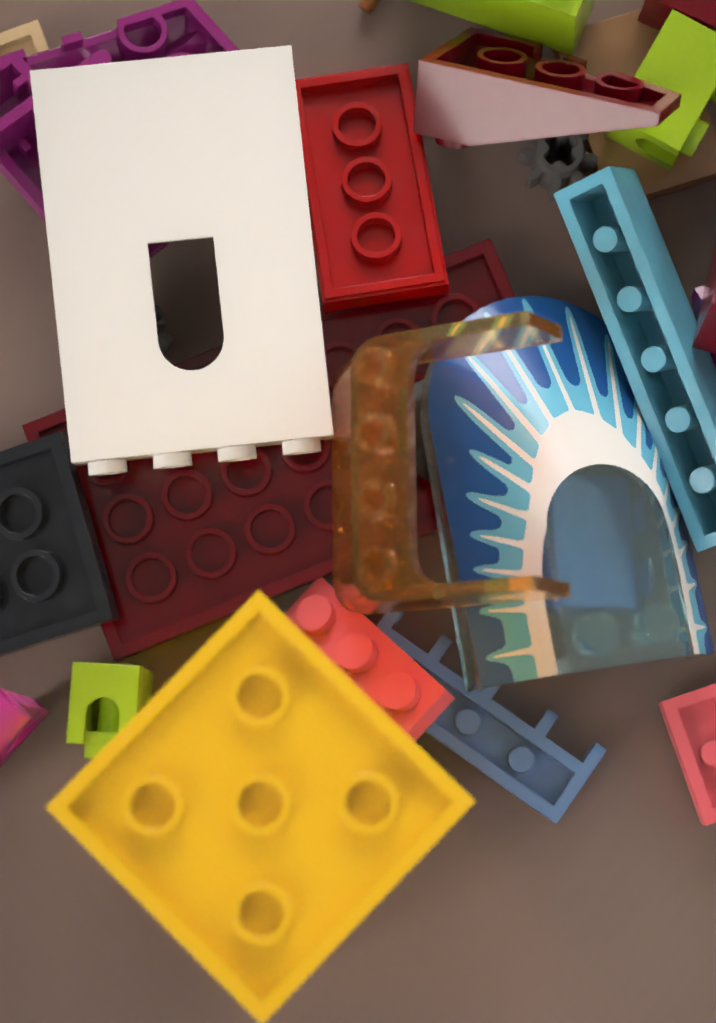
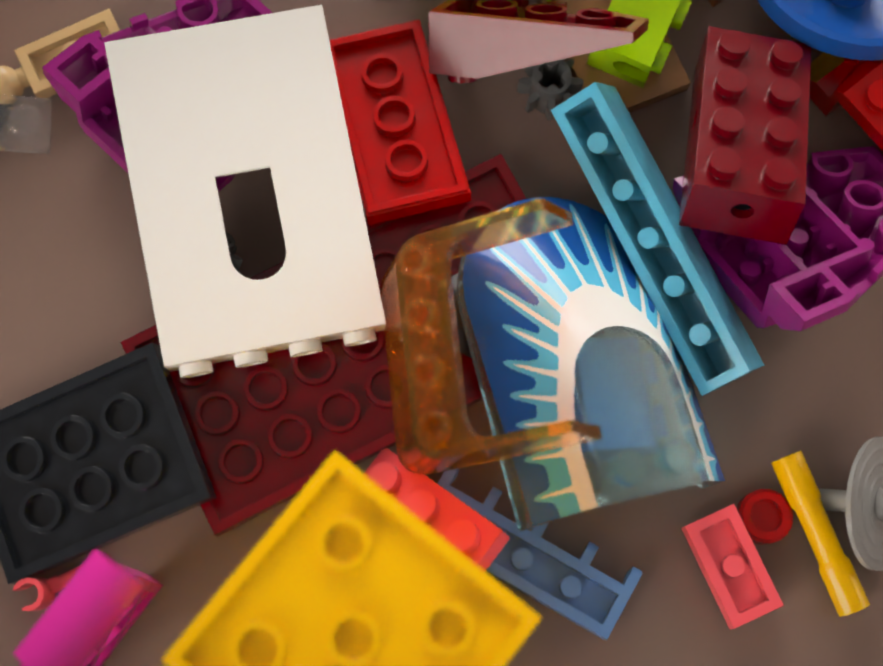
camera: 10 degrees left, 5 degrees down
(105, 701) = (205, 566): lime brick -> none

